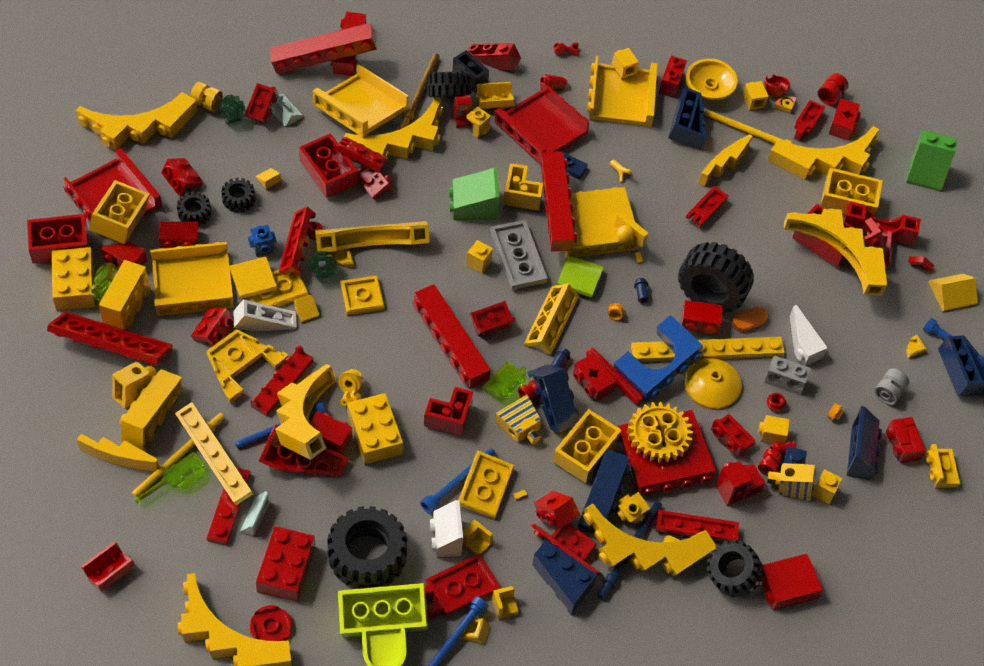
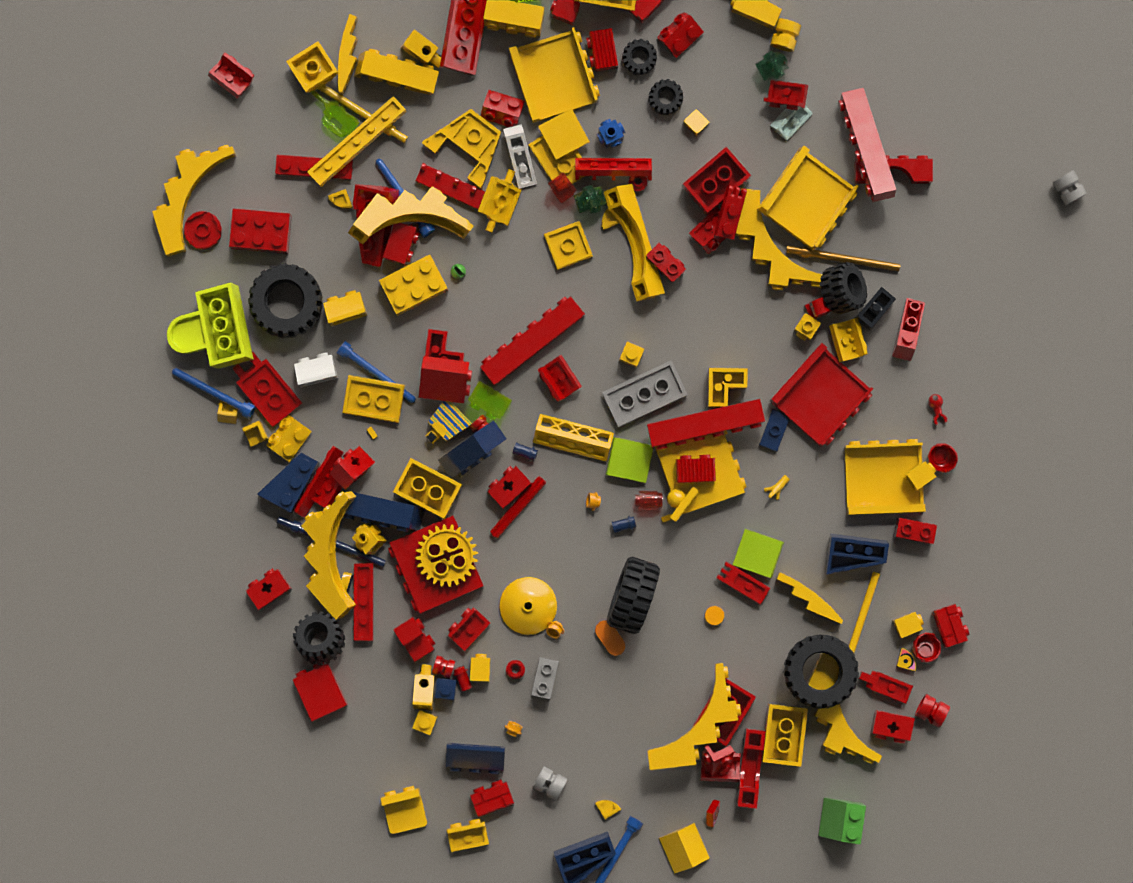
camera: 85 degrees right, 30 degrees up
(122, 484) = (312, 67): none -> yellow slope
(255, 514) = (308, 192): light aqua slope -> none
(270, 484) = (341, 199): none -> yellow tile
(304, 283) = (562, 188): none -> clear red panel
(306, 308) = (540, 194): yellow slope -> none
(306, 338) = (499, 200): none -> yellow plate
(350, 383) = (459, 253): yellow piece -> none
(371, 390) = (454, 274): none -> bright green hinge
(387, 490) = (344, 308): none -> yellow slope
(397, 212) = (665, 262): none -> red bracket
(475, 196) = (705, 338): slope -> none
(477, 537) = (316, 398): yellow panel -> none
(479, 406) = (444, 379): none -> red brick
(513, 571) = (288, 438): none -> yellow bracket
(553, 81) = (883, 400): red cone -> none
(600, 215) = (695, 470): none -> red brick
(608, 45) = (943, 457): none -> red hair
(621, 265) = (649, 500): none -> clear red brick
(649, 380) = (549, 572): blue arch -> none
(675, 605) = (278, 588): none -> red brick
(680, 192) = (758, 553): none -> lime slope
(701, 317) = (596, 587): red brick -> none
(712, 79) = (929, 577): yellow dish -> none
(713, 348) = (566, 597): yellow plate -> none
(735, 234) = (714, 615): none -> light orange tile
(739, 361) = (554, 629): none -> light orange plate
(757, 66) = (950, 625): none -> red brick
(800, 131) = (847, 671): none -> black tyre
(806, 341) = (591, 694): white slope -> none
(915, 521) = (404, 809): none -> yellow bracket

